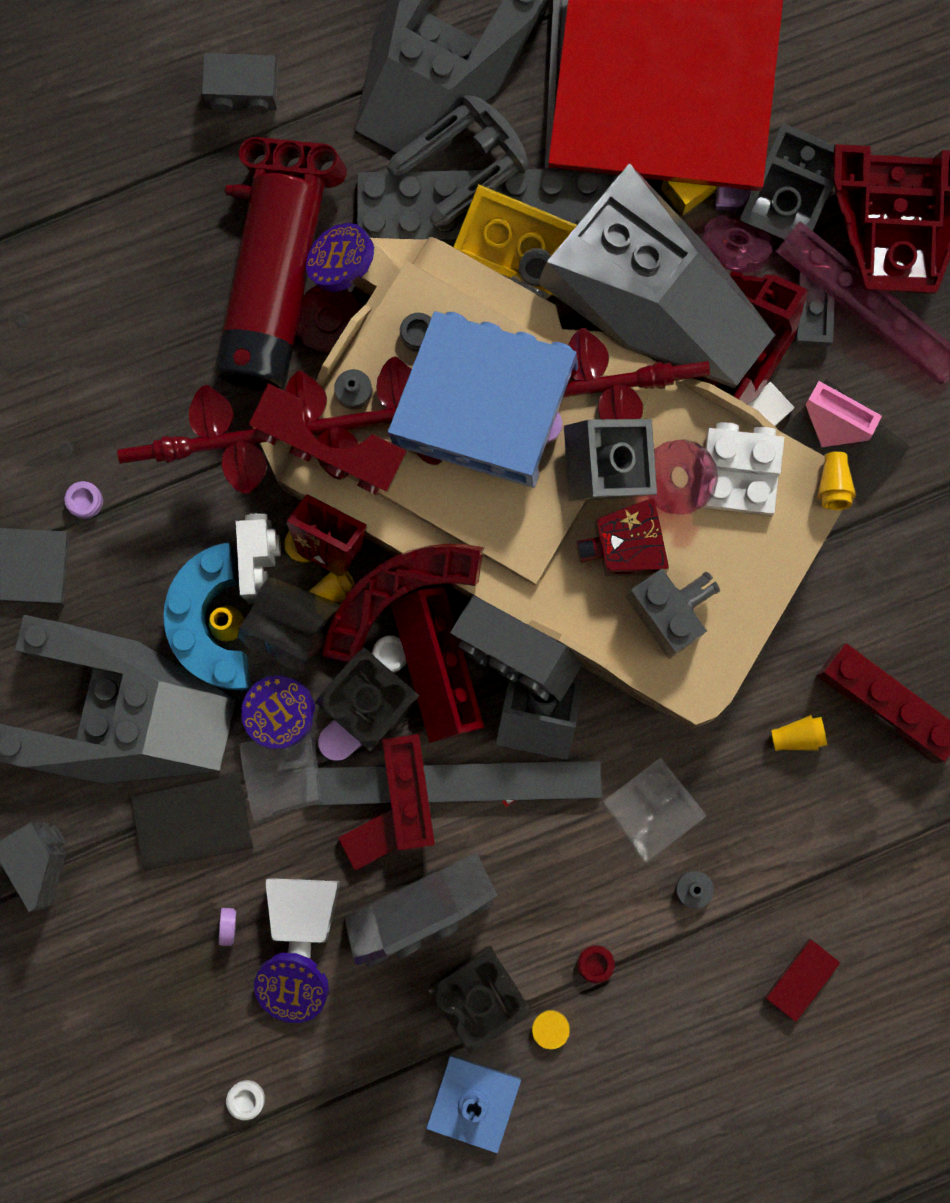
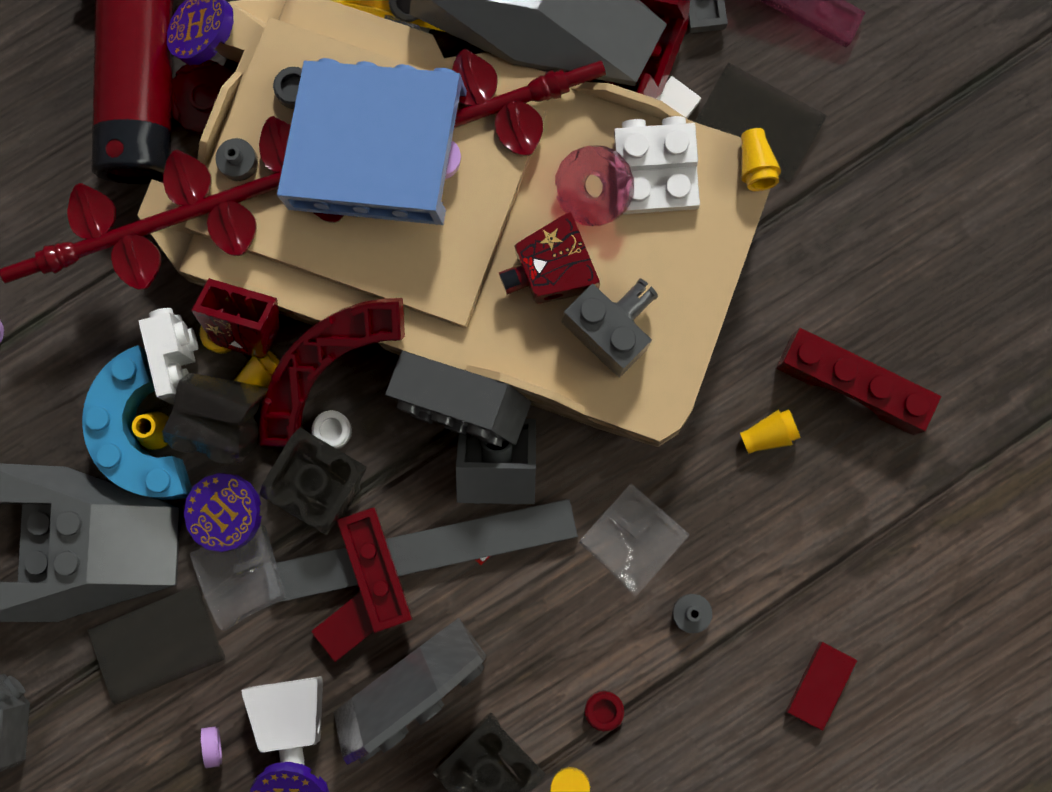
camera: 10 degrees left, 0 degrees up
(284, 418) = (166, 200): dark red arch -> none
(337, 743) = (292, 533): lavender tile -> none
(436, 664) = (380, 431): dark red brick -> none
(610, 459) = (517, 180): dark grey slope -> none
(839, 418) = (749, 99): bright pink slope -> none

